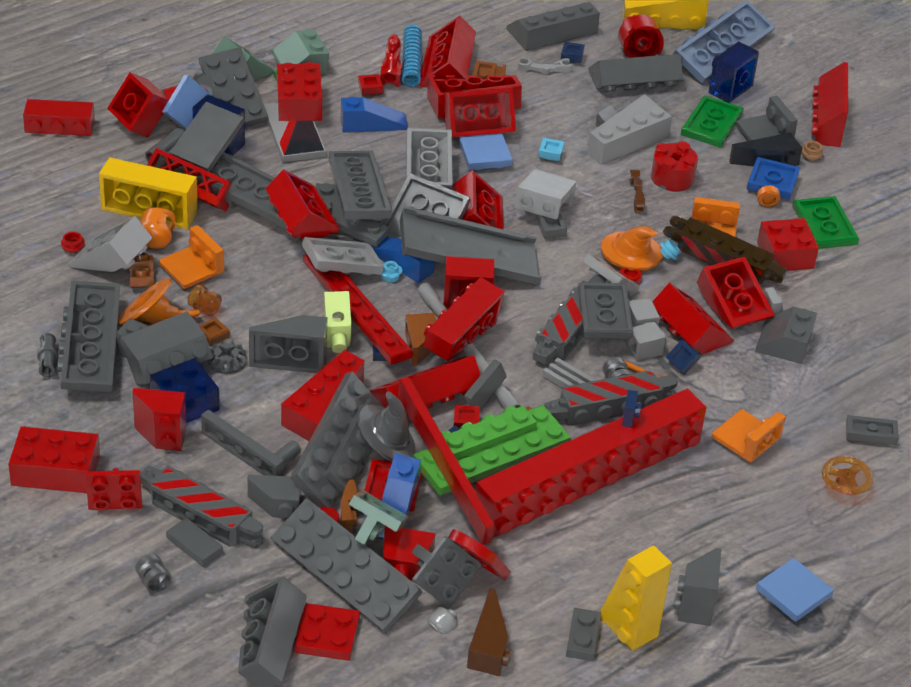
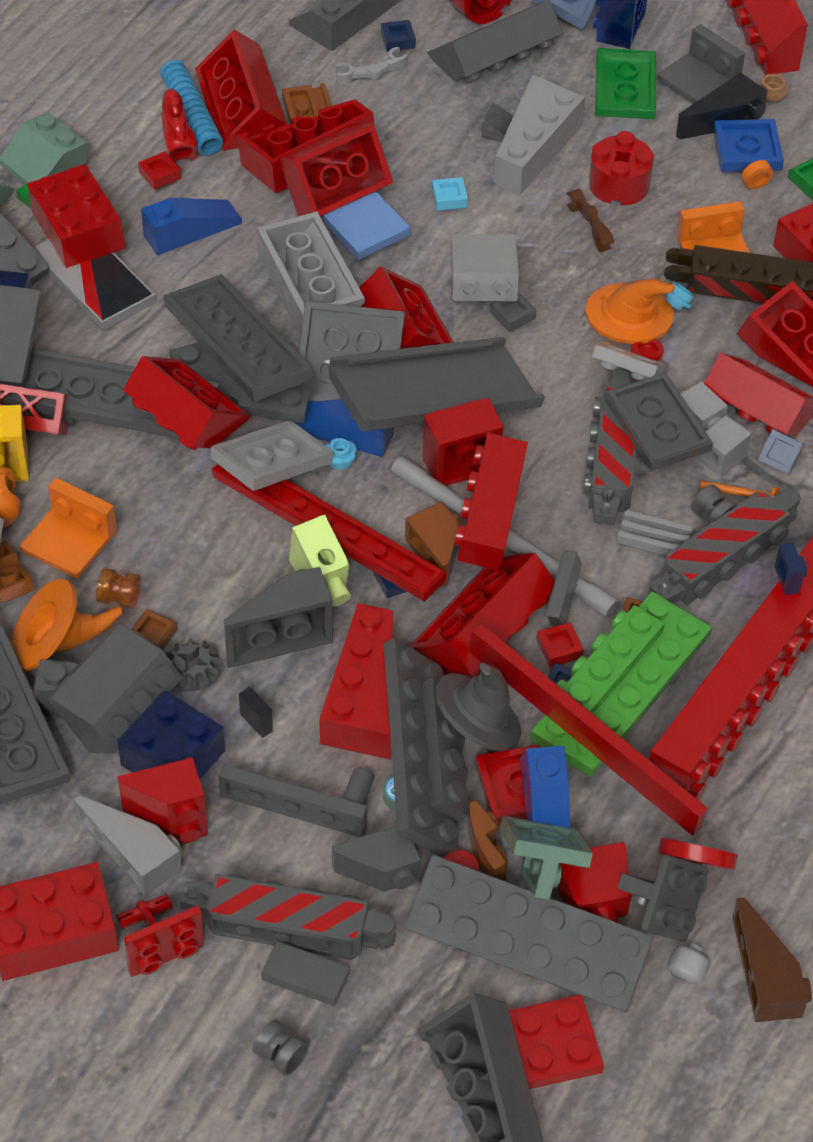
camera: 20 degrees left, 10 degrees up
(130, 437) = (133, 844): none -> light grey slope
(248, 392) = (256, 712): none -> black tile

